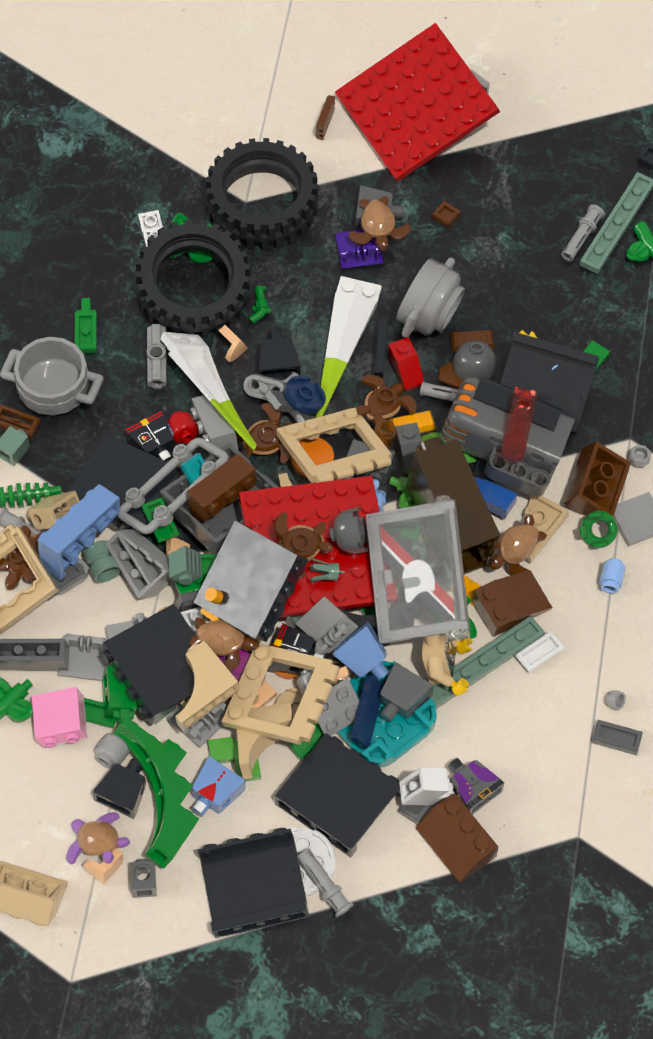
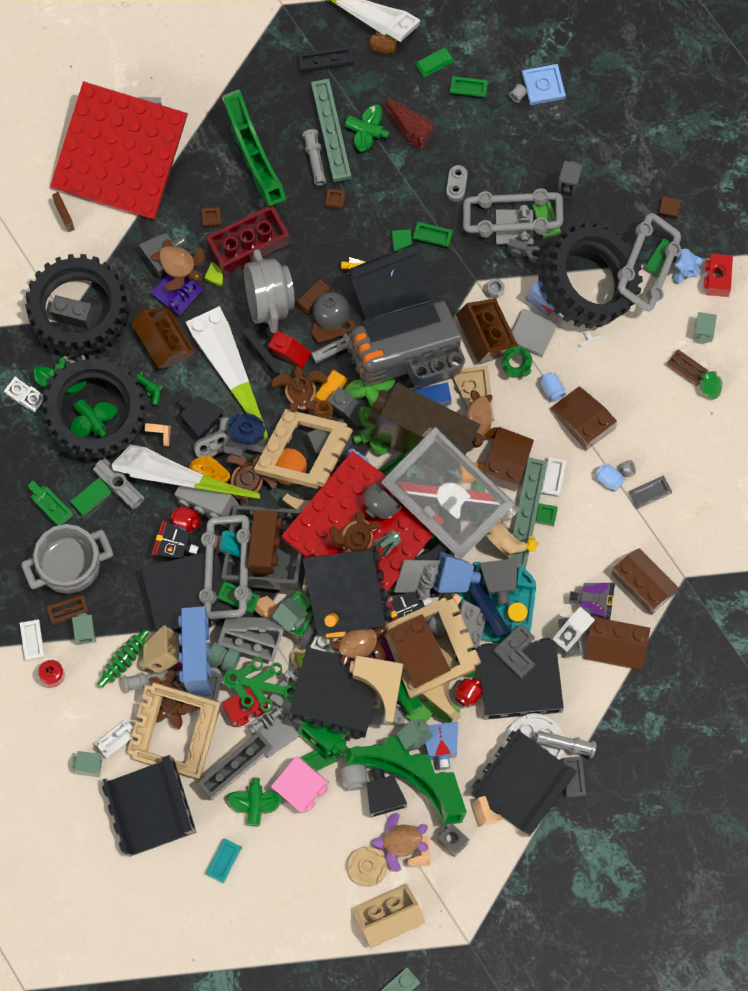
camera: 40 degrees left, 10 degrees up
(49, 837) = (367, 866): none -> tan tile
(71, 607) = (237, 715): none -> red brick
(104, 602) = (257, 684): none -> green plant
(125, 350) = (91, 497): none -> green tile
(188, 289) = (92, 418): none -> green plant
(190, 882) = (483, 812): none -> light nougat tile
(195, 757) = (414, 734): none -> sand green brick
(219, 732) = (411, 705): none -> green tile
(244, 404) = (210, 468): none -> light orange piece
(253, 194) = (71, 311): none -> dark grey brick
(264, 683) = (419, 651): none -> reddish brown slope
(281, 765) = (468, 692): none -> red head
(301, 929) = (576, 786): none -> dark grey tile
(310, 273) = (163, 337): none -> reddish brown slope
(352, 759) = (511, 651): none -> dark grey tile
(391, 736) = (517, 612): none -> yellow tile
(403, 260) = (214, 275): none -> lime tile
(474, 251) = (237, 242): none -> dark red brick
(501, 678) = (546, 514): none -> green tile
(518, 423) = (417, 336): clear red slope -> none
(519, 213) = (253, 153): none -> green arch
(537, 806) = (645, 580): none -> reddish brown slope
(568, 279) = (335, 199): none -> reddish brown tile
(590, 692) = (610, 477): none -> light blue brick
(616, 626) = (584, 417): none -> reddish brown slope
(626, 371) = (432, 234): none -> green tile

